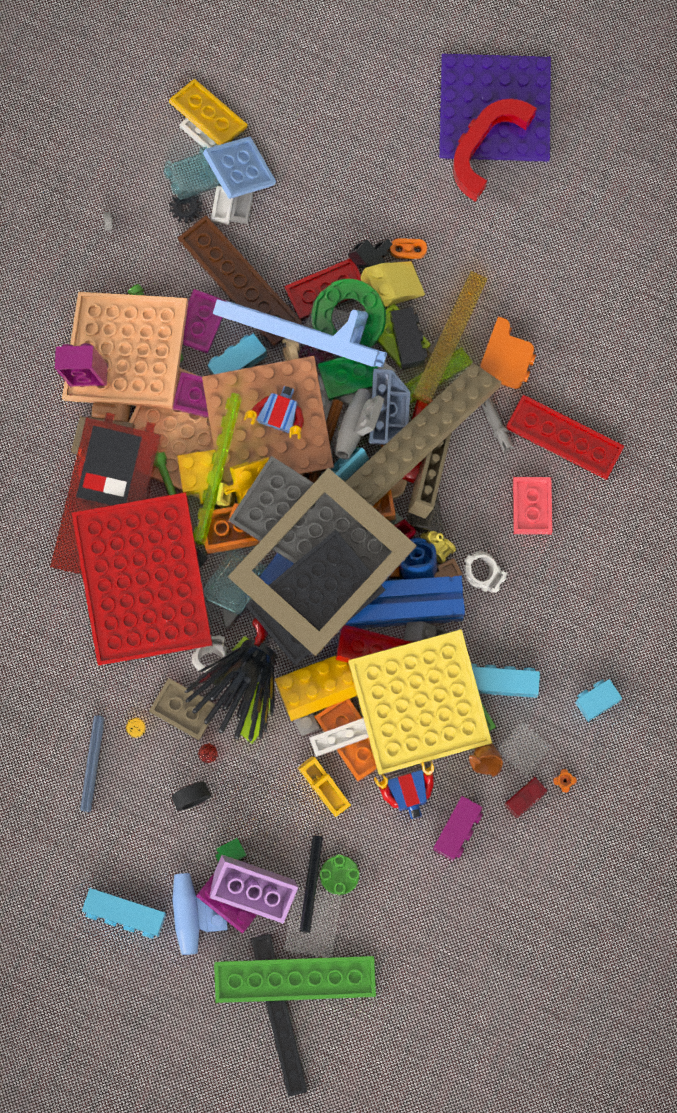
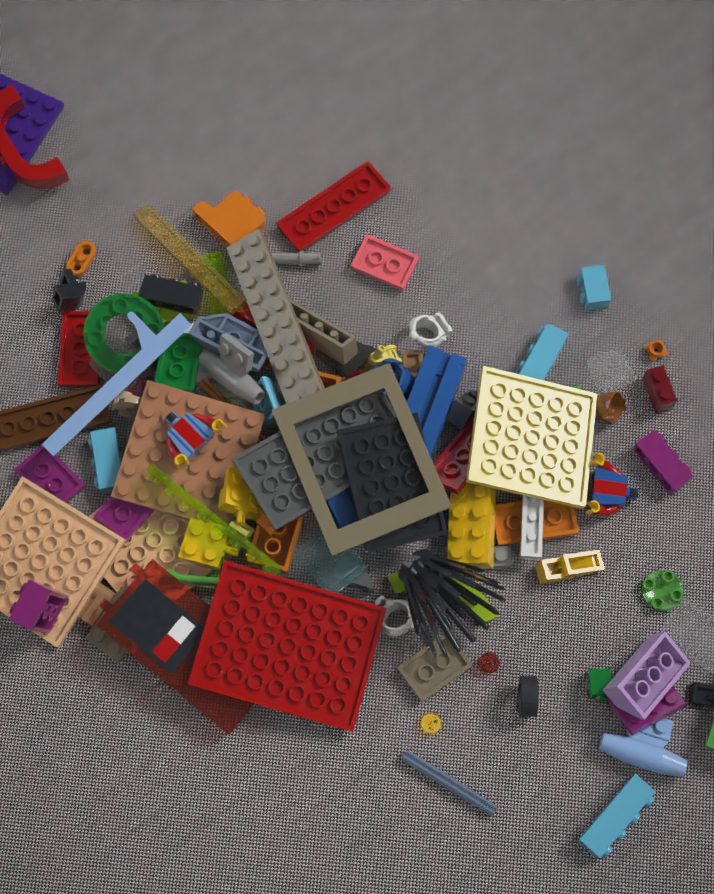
camera: 65 degrees left, 5 degrees down
(261, 632) = (389, 557): red arm -> none
(311, 884) = (662, 620): black axle -> none
(394, 281) = (107, 281): light yellow slope -> none

